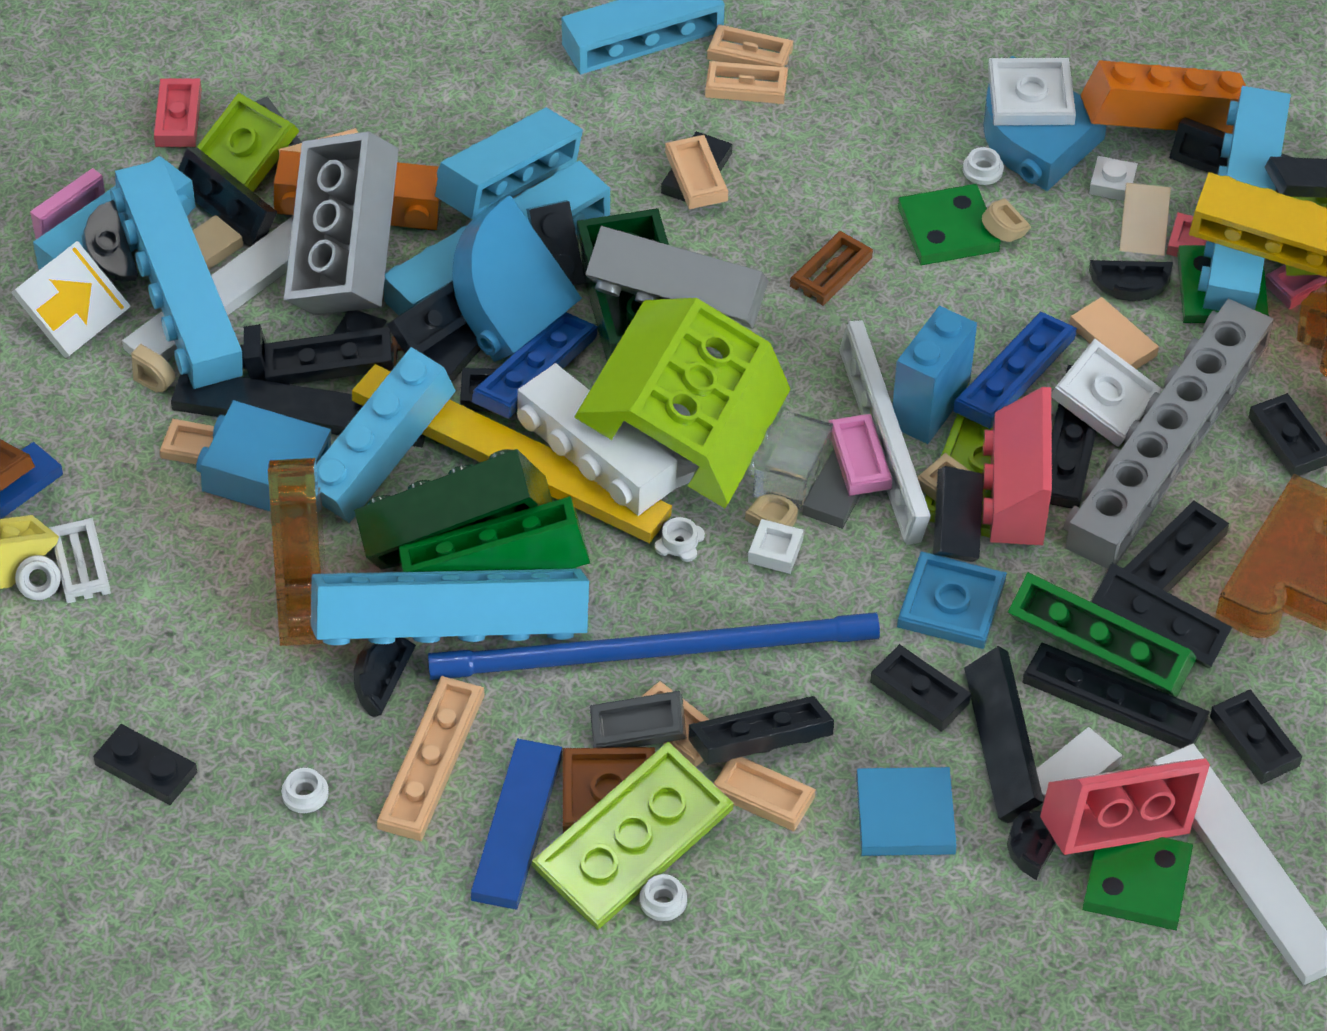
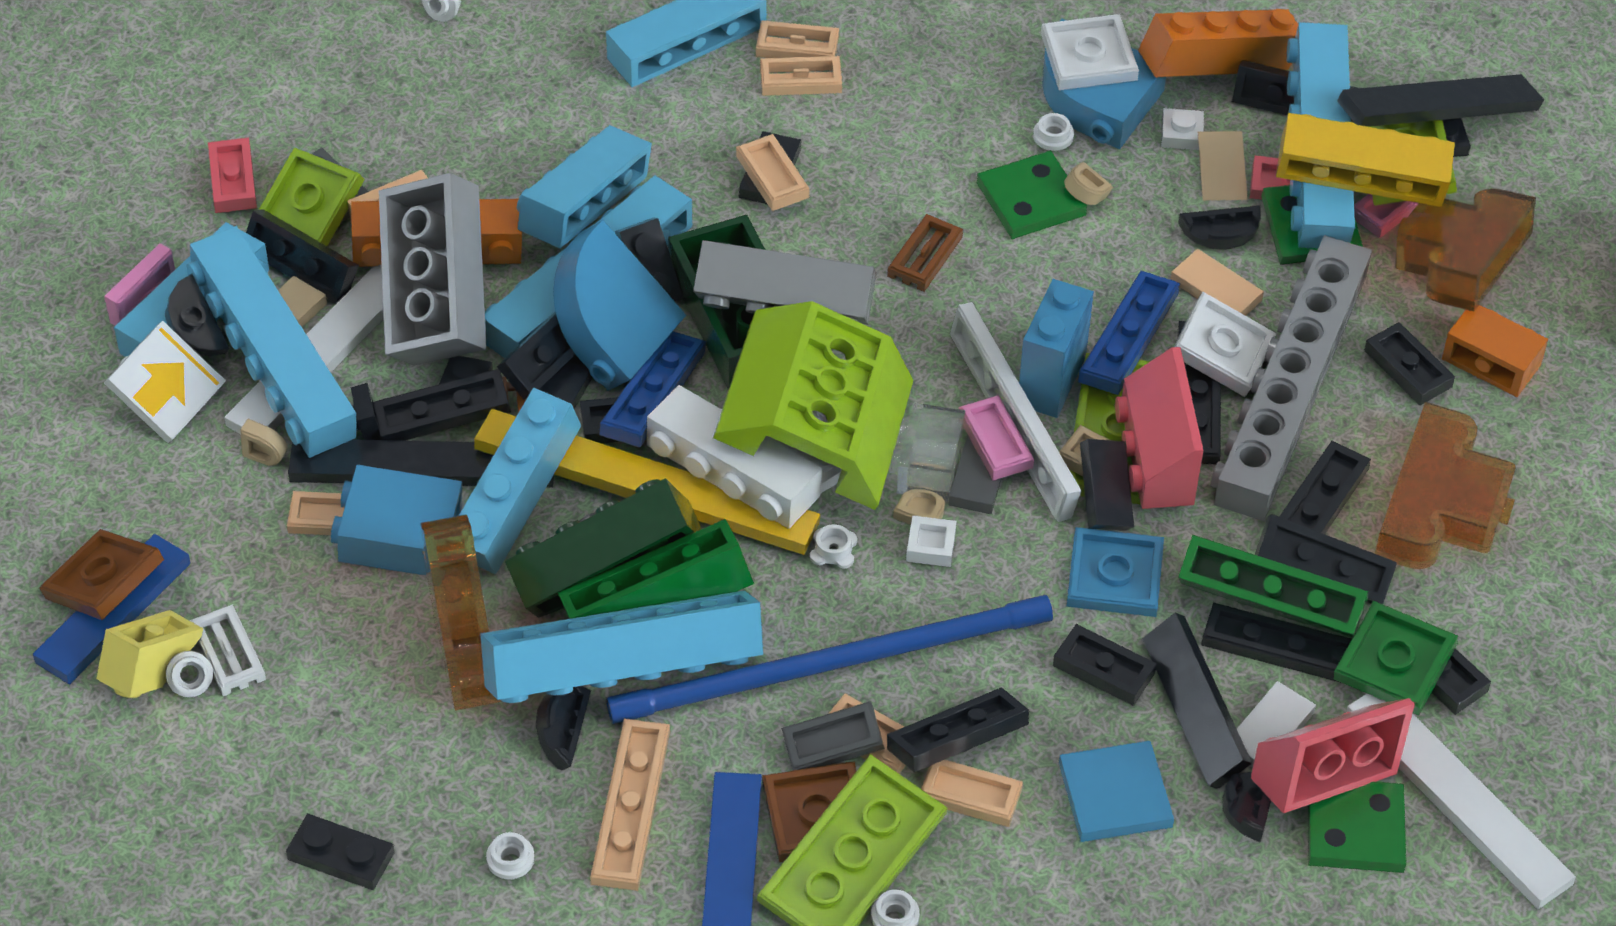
camera: 10 degrees left, 0 degrees up
(1210, 719) = (1395, 656): none -> green tile

